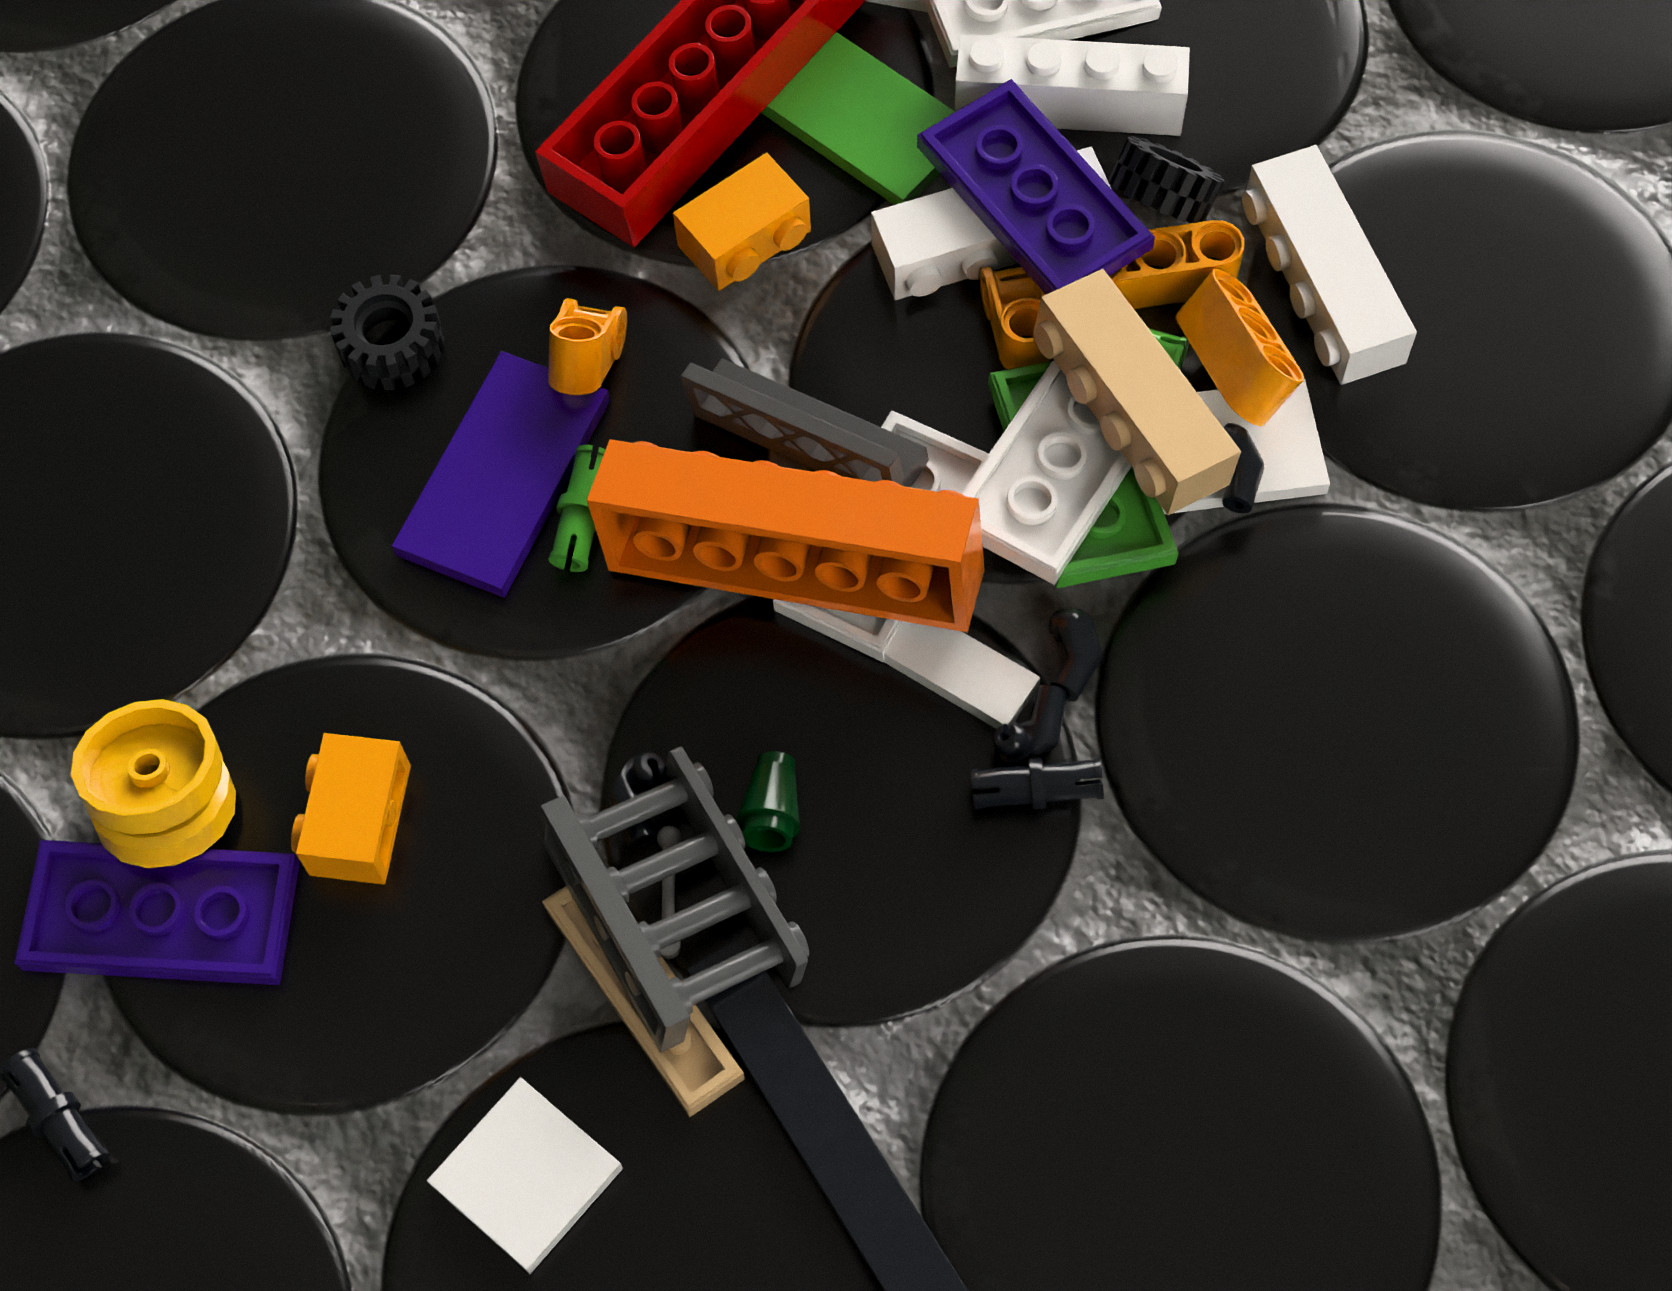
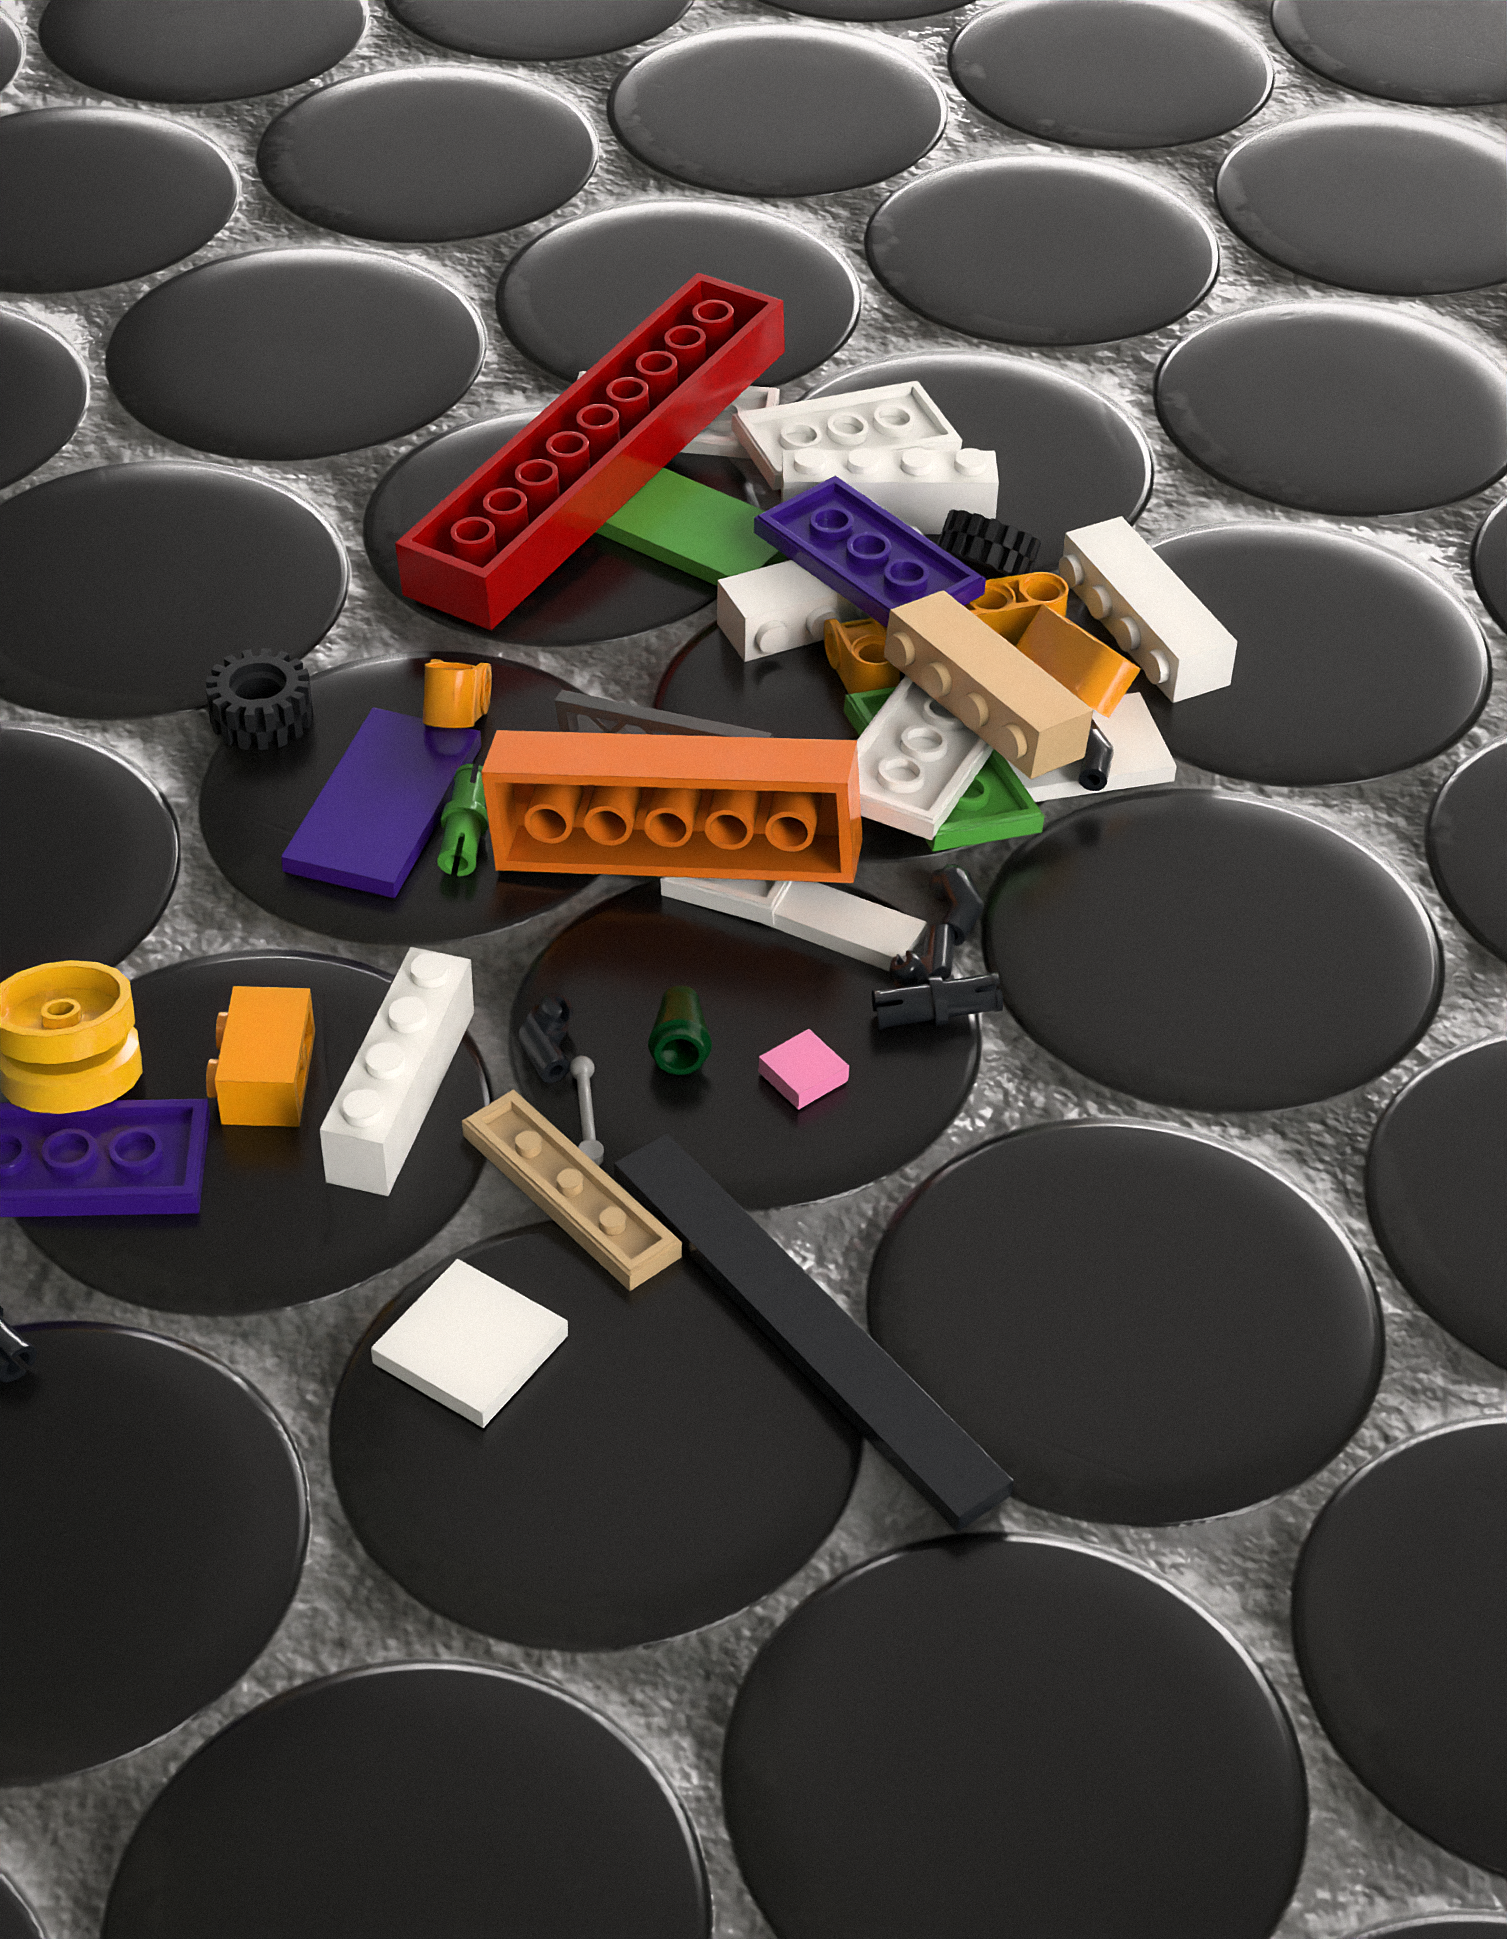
camera: 10 degrees left, 20 degrees down
(482, 840) = (397, 1072): none -> white brick
(635, 946) = (569, 1141): dark grey fence -> none
(743, 222) = (594, 602): light orange brick -> none
(891, 857) = (803, 1068): none -> bright pink tile

